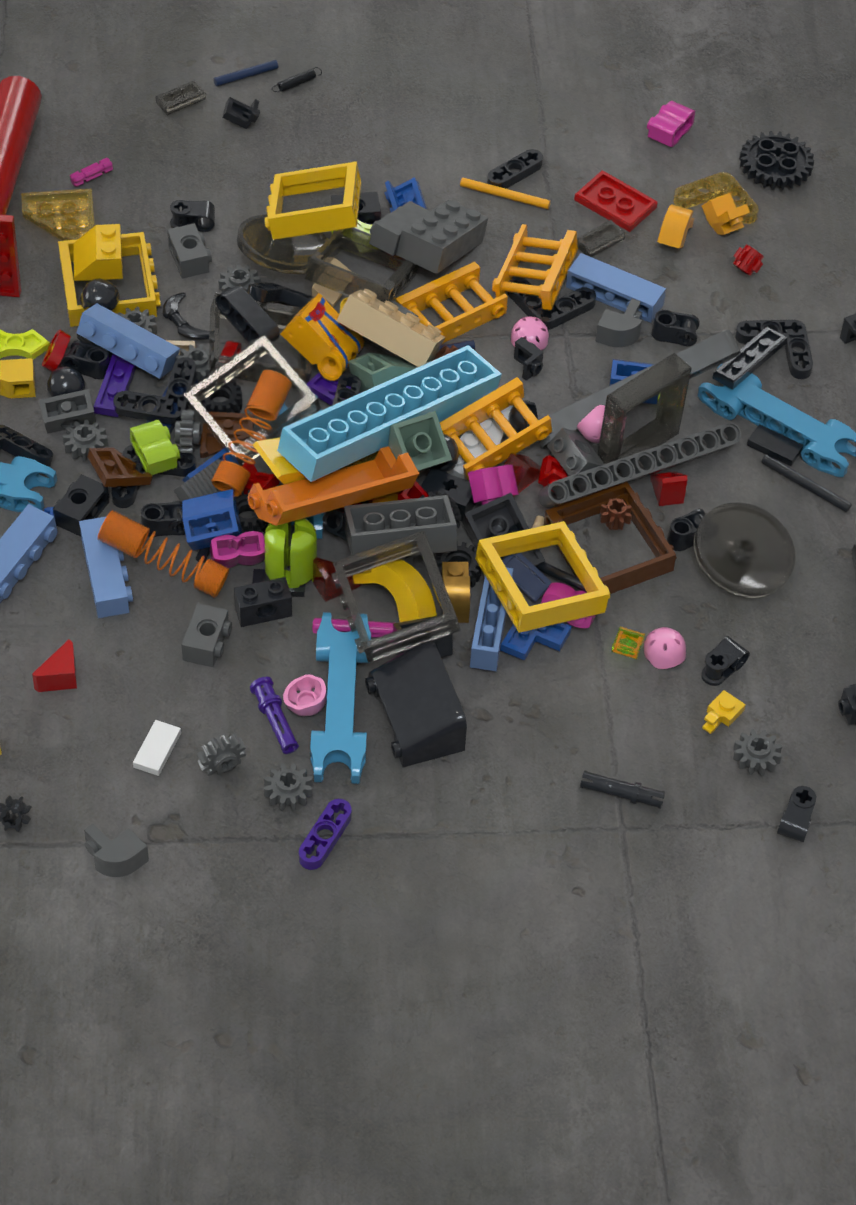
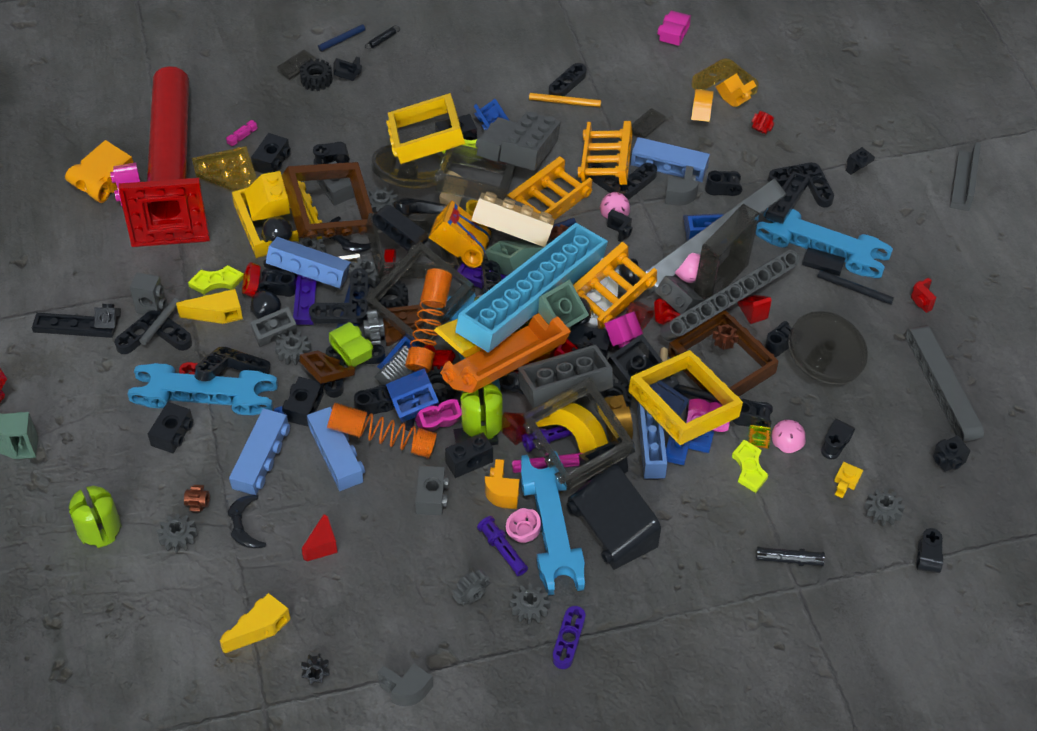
camera: 10 degrees left, 0 degrees up
(119, 202) = (270, 154): none -> black brick
(157, 747) = (415, 590): white tile -> none
(174, 234) = (322, 172): none -> reddish brown window
(201, 123) = (316, 82): none -> black tyre
(290, 649) = (499, 490): none -> light orange brick
(364, 596) = (550, 435): none -> dark purple pin
(605, 686) = (752, 474): none -> neon yellow tile
(615, 201) = (649, 92): red tile -> none
(626, 613) = (753, 414): none -> black piece
(776, 160) = (760, 43): black gear -> none

